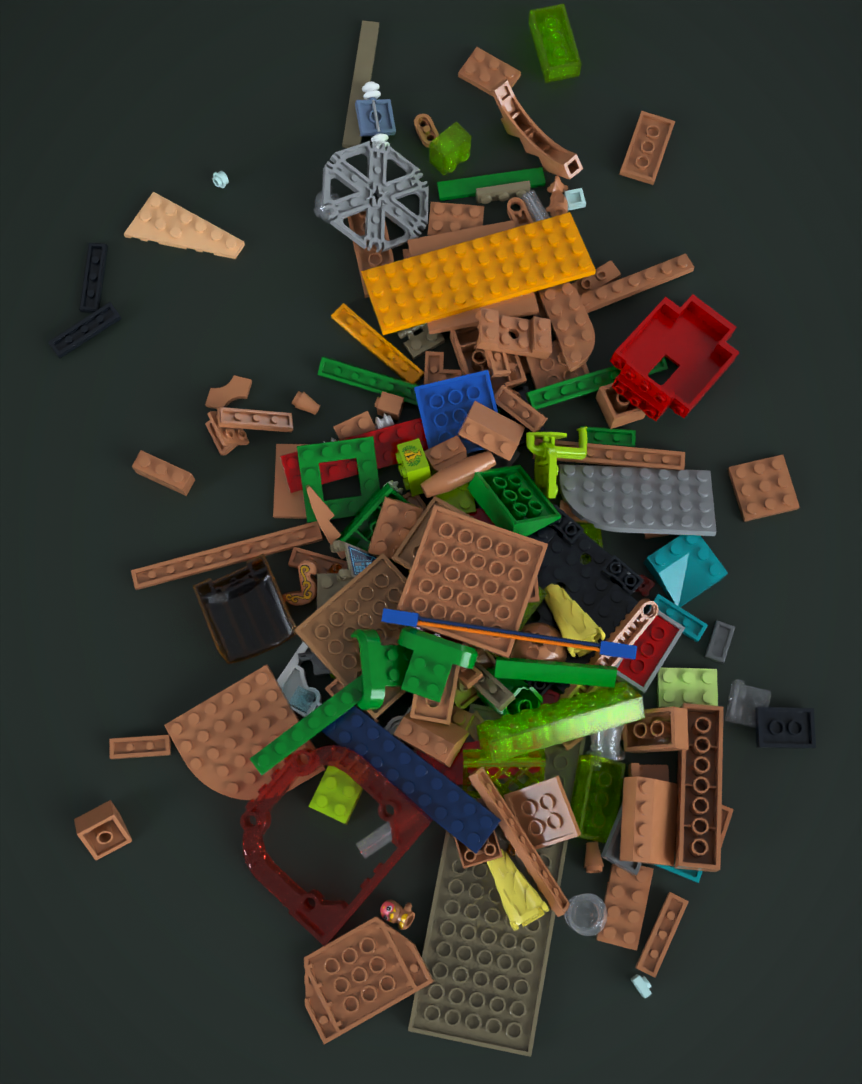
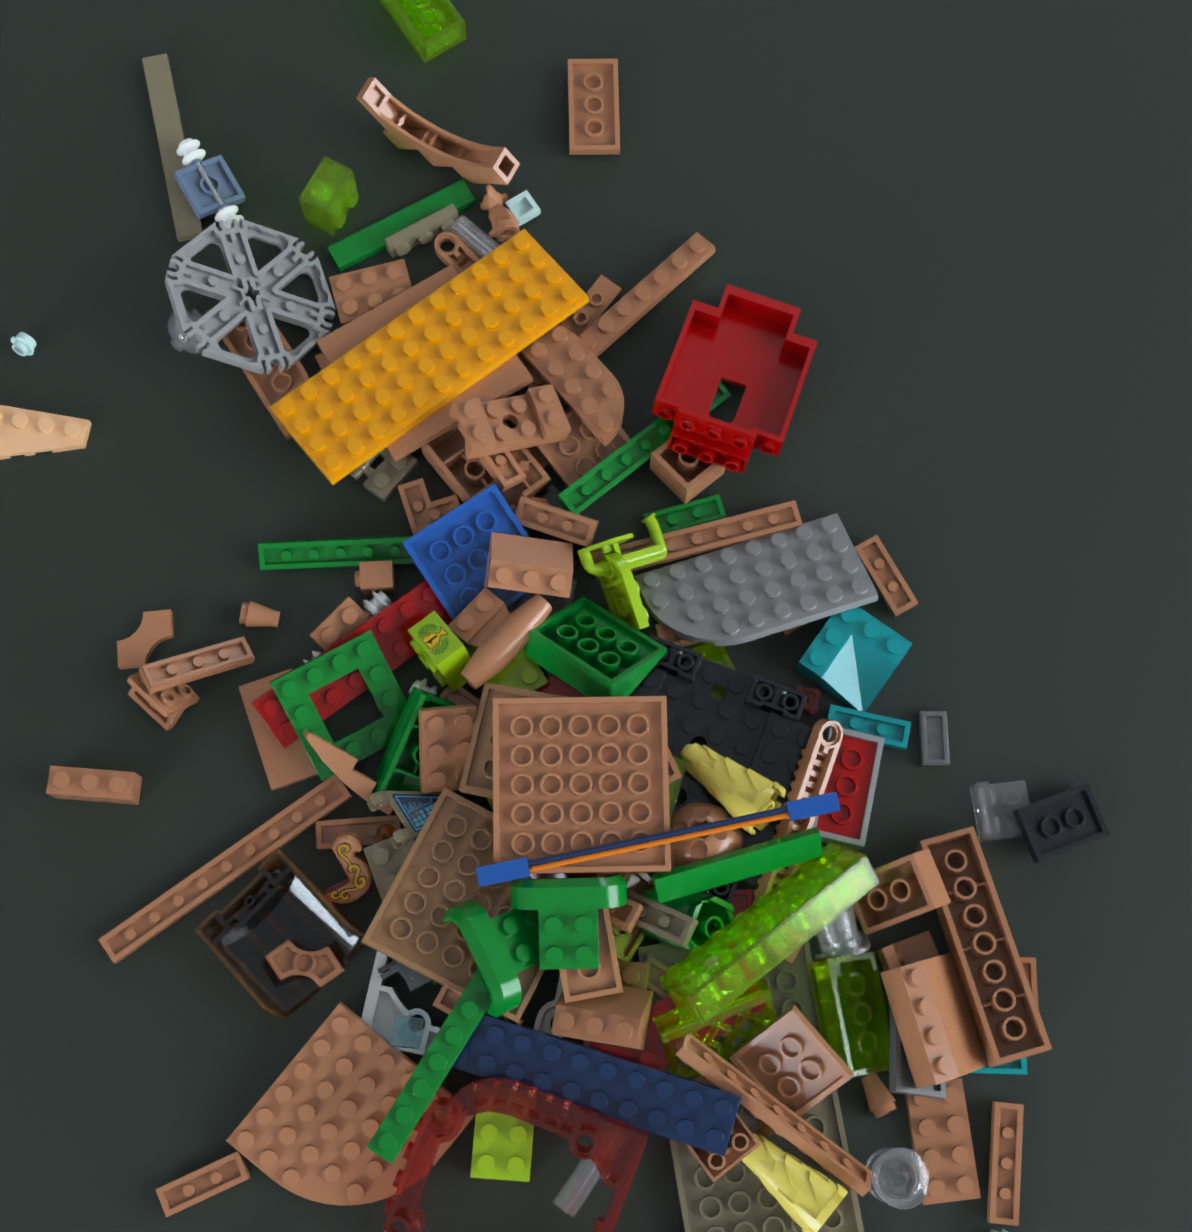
camera: 25 degrees left, 0 degrees up
(262, 638) = (291, 961): none -> nougat tile
(377, 344) = (327, 499): light orange tile -> none
(426, 132) = (288, 182): nougat plate -> none
(487, 71) = (340, 73): nougat plate -> none
(686, 686) = (914, 816): yellowish green plate -> none
(727, 523) = (886, 576): none -> nougat plate
(763, 488) = (913, 511): nougat plate -> none

